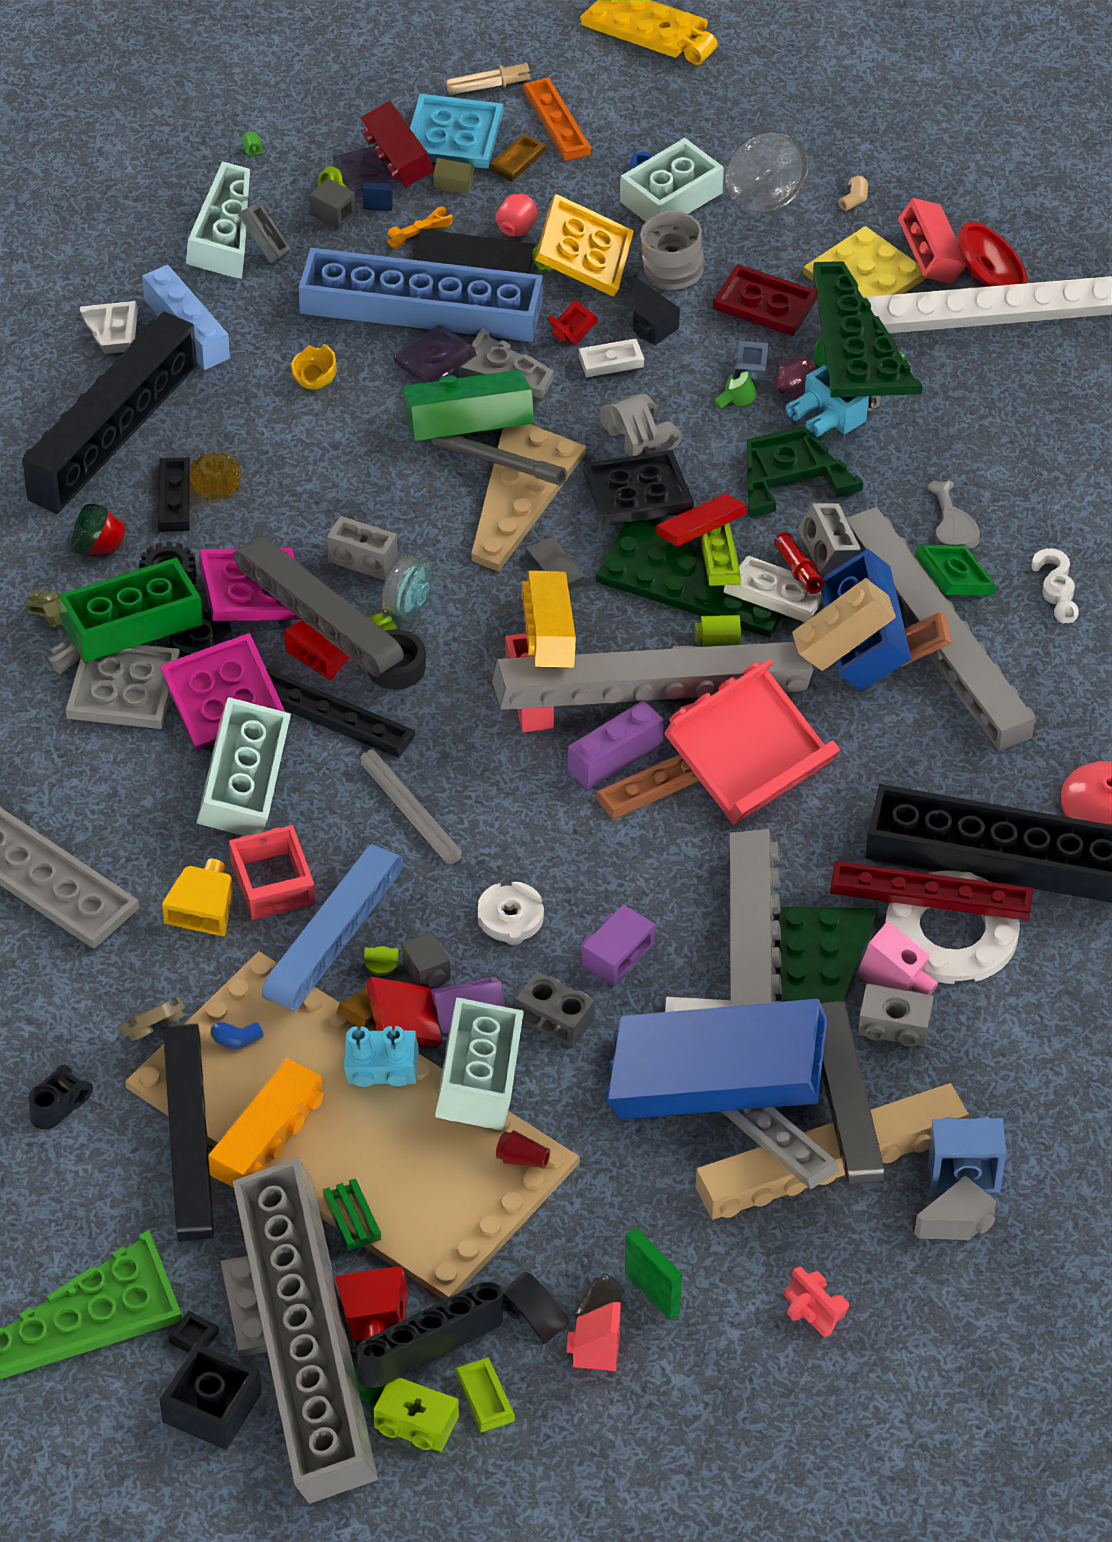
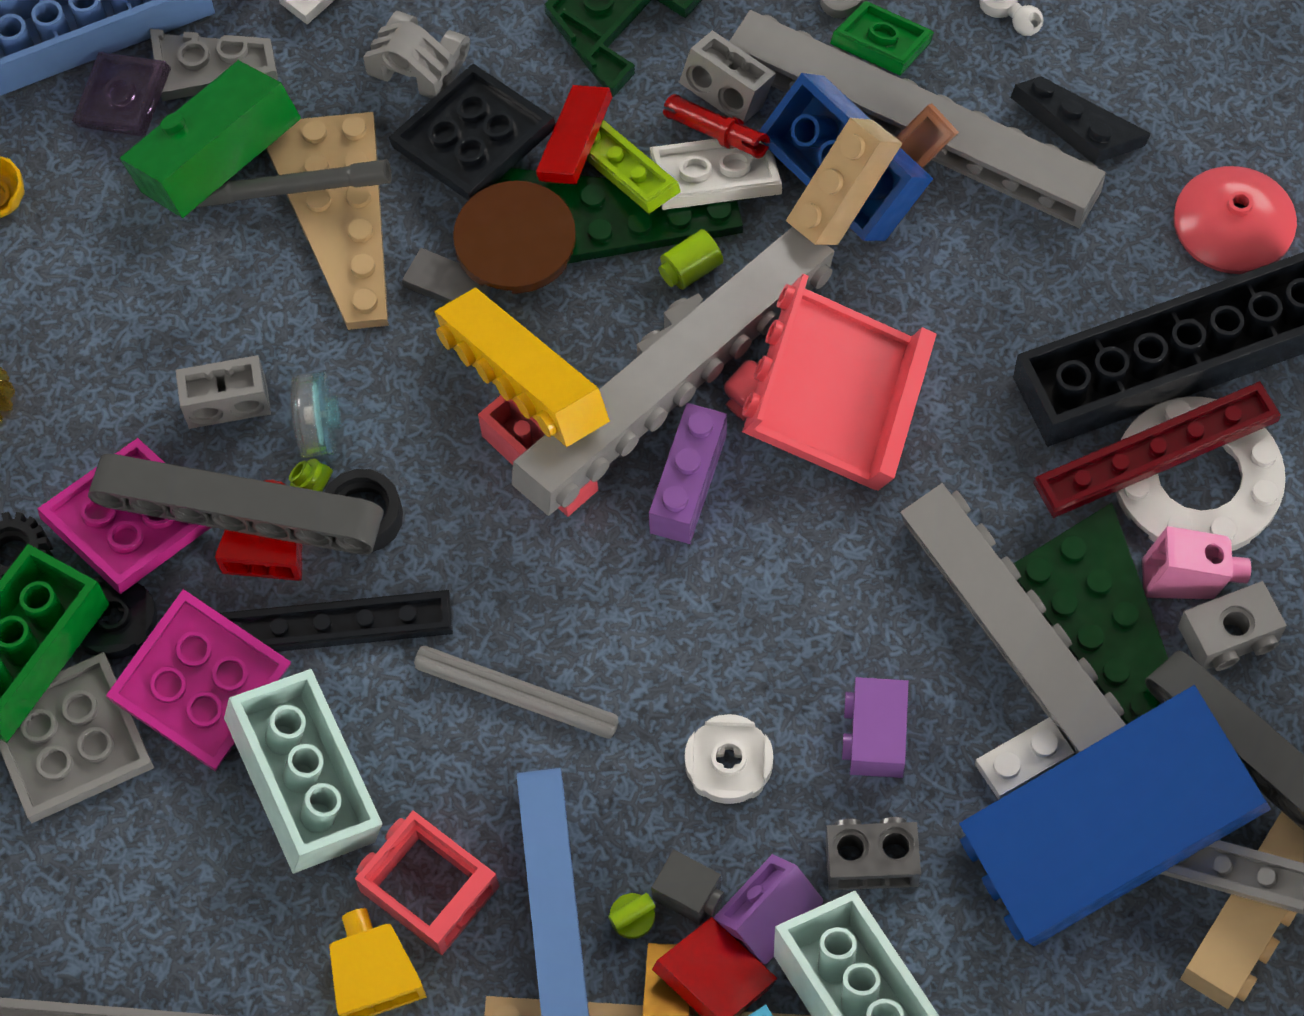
camera: 30 degrees left, 15 degrees up
(614, 557) = (514, 236): none -> reddish brown tile
(646, 787) = (752, 503): nougat tile -> none
(1048, 687) = (1079, 122): none -> black wing

